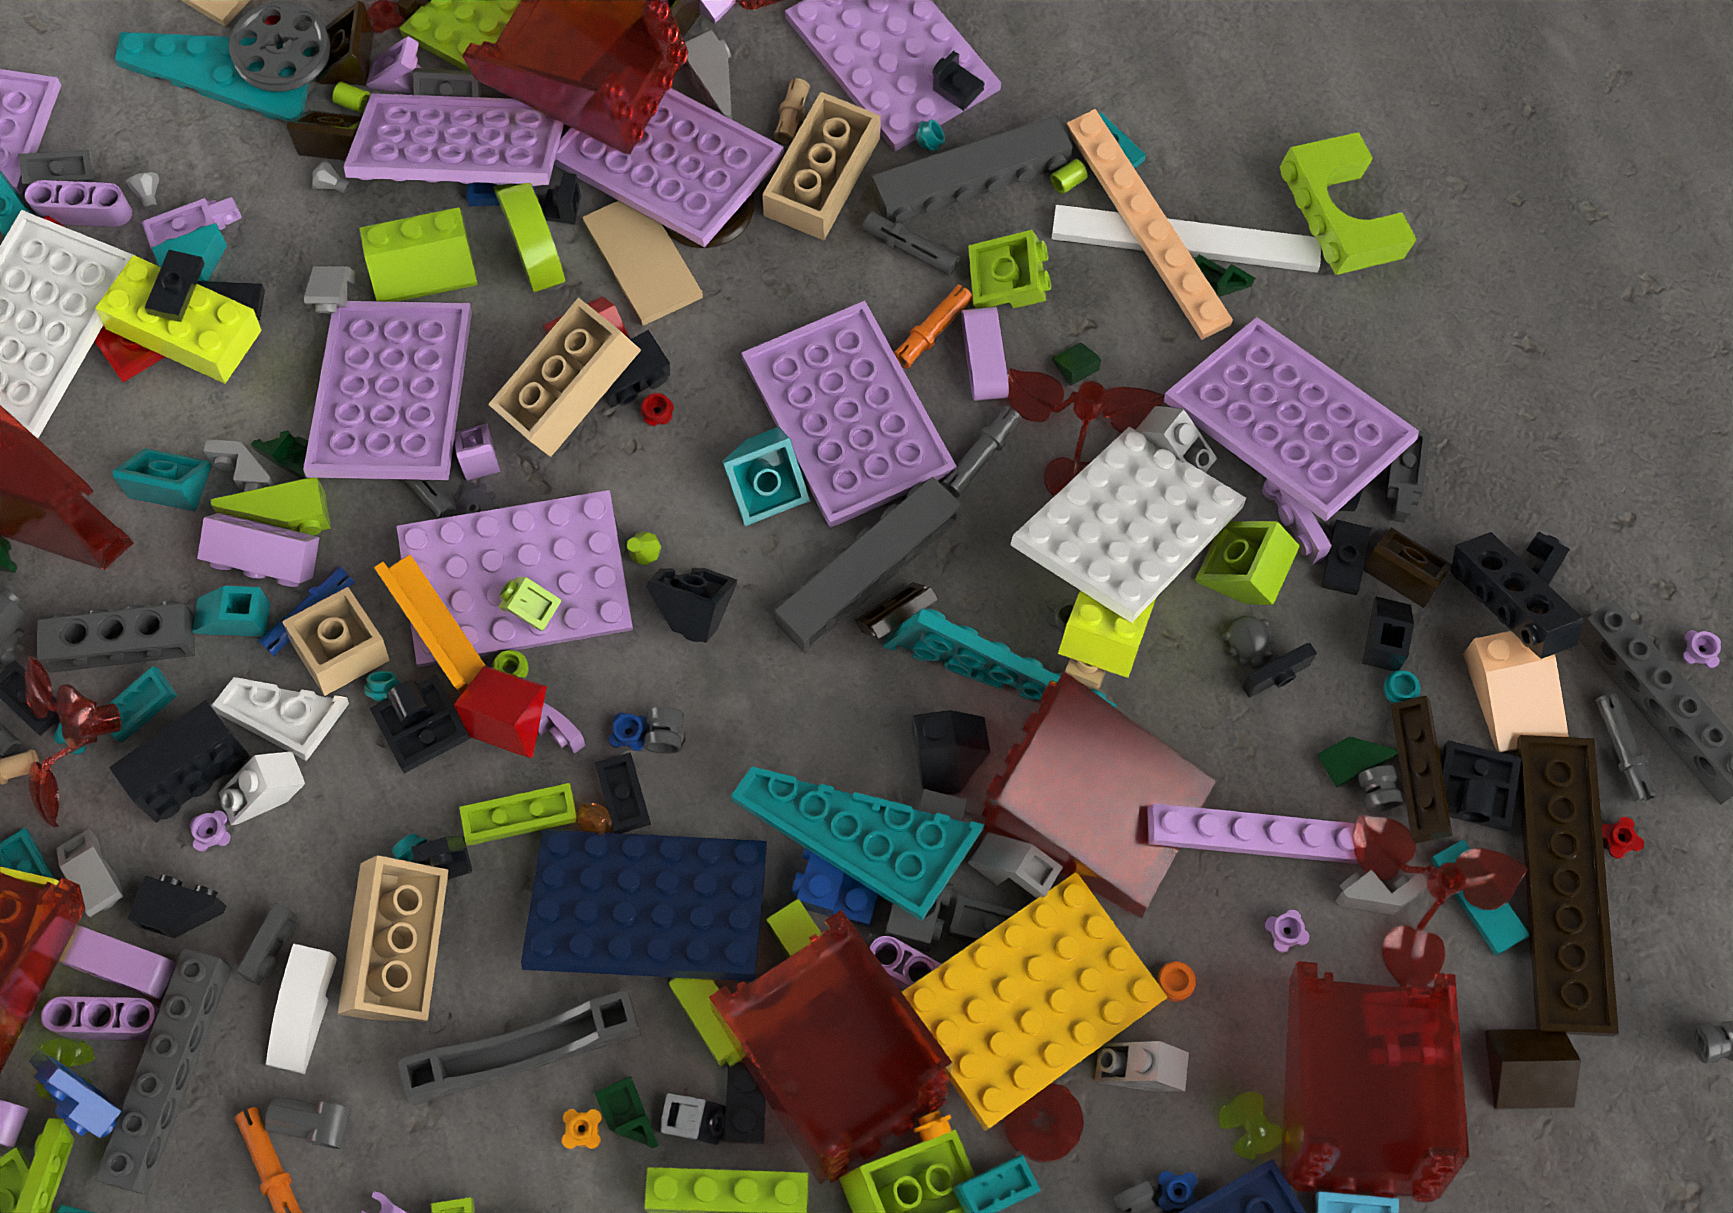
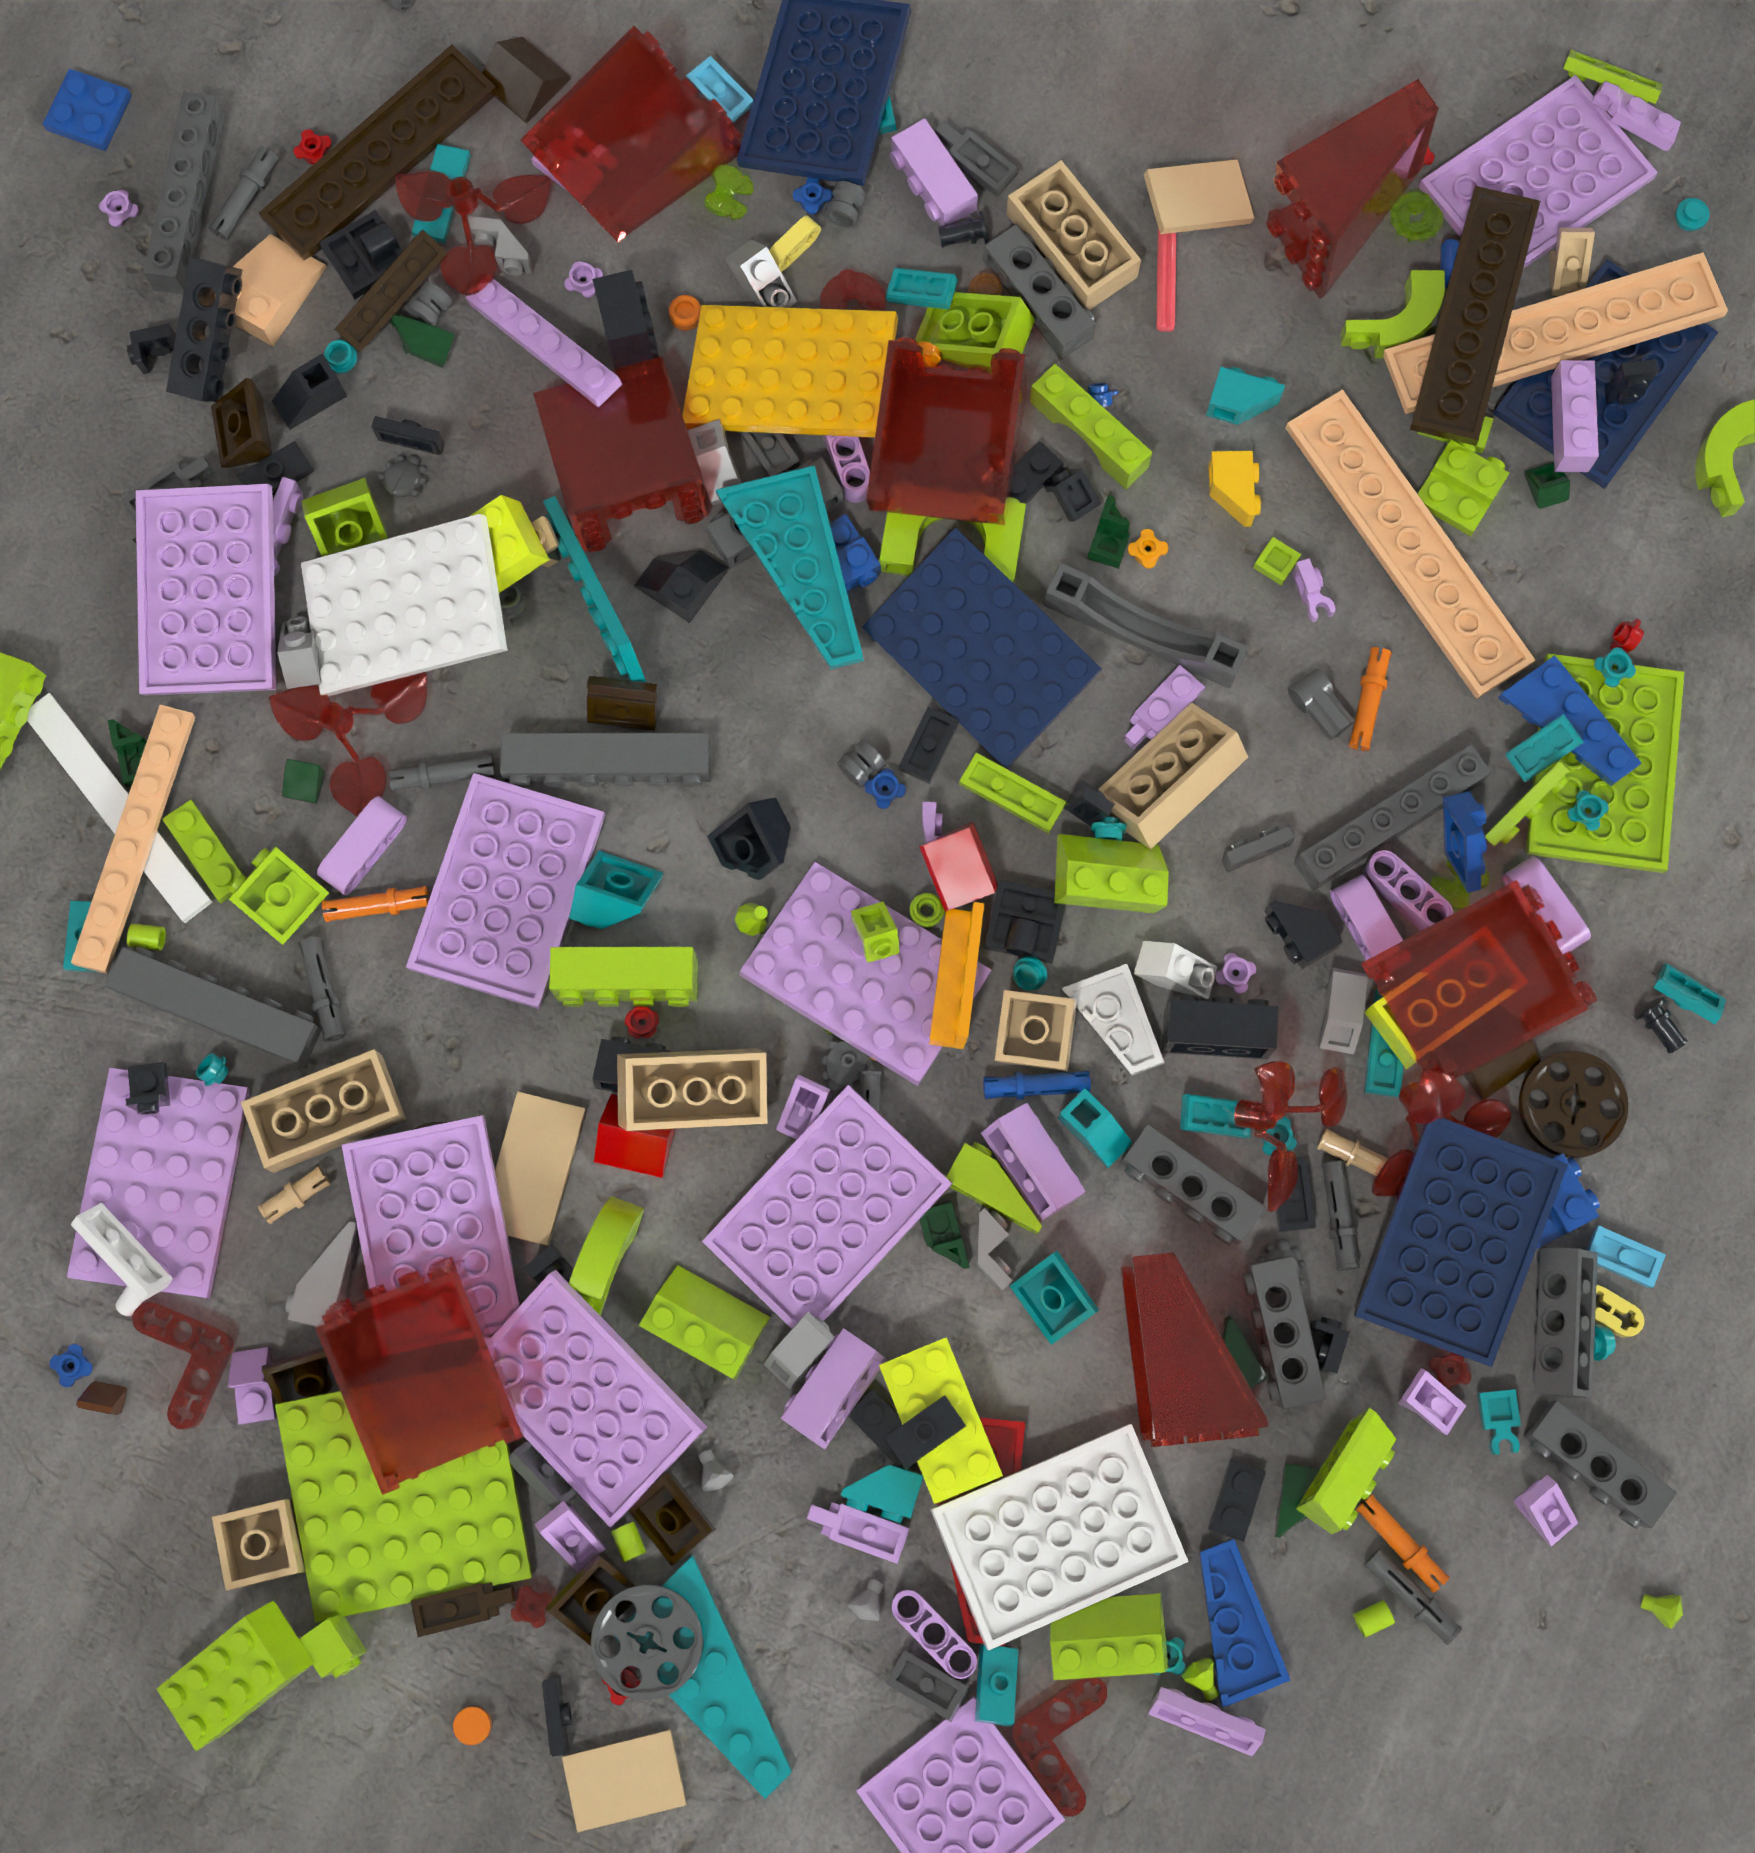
camera: 135 degrees left, 10 degrees up
(283, 287) = (833, 1388): none -> lavender brick
(300, 1008) = (1268, 785): white slope -> none
(375, 809) = (1110, 874): none -> lime slope
(451, 998) = (1163, 706): none -> lavender hinge
(594, 818) = (964, 742): clear orange plate -> none
(694, 417) = (623, 975): none -> lime brick
(1094, 263) = (203, 849): none -> lime plate
(1147, 1127) = (795, 242): none -> light yellow beam
(1198, 897) = (625, 319): none -> black brick

